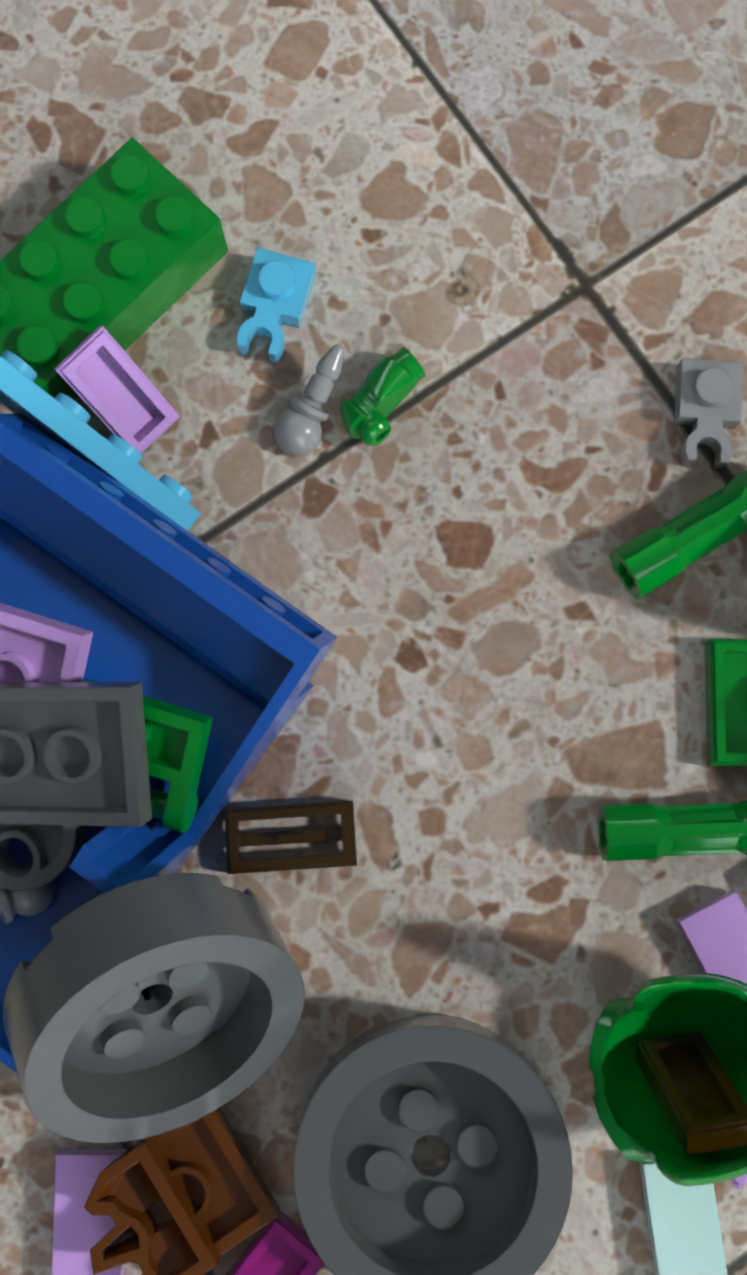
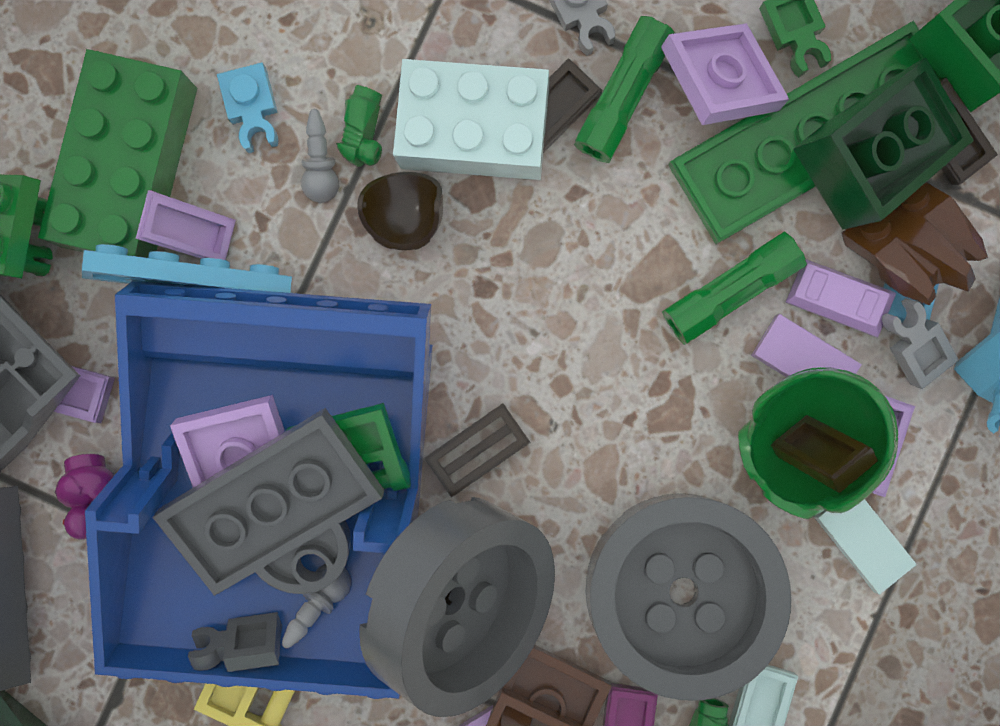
camera: 30 degrees left, 5 degrees up
(369, 513) = (401, 209): none -> dark brown helmet
(510, 458) = (471, 119): none -> light aqua brick
(608, 501) = (568, 98): none -> dark brown tile

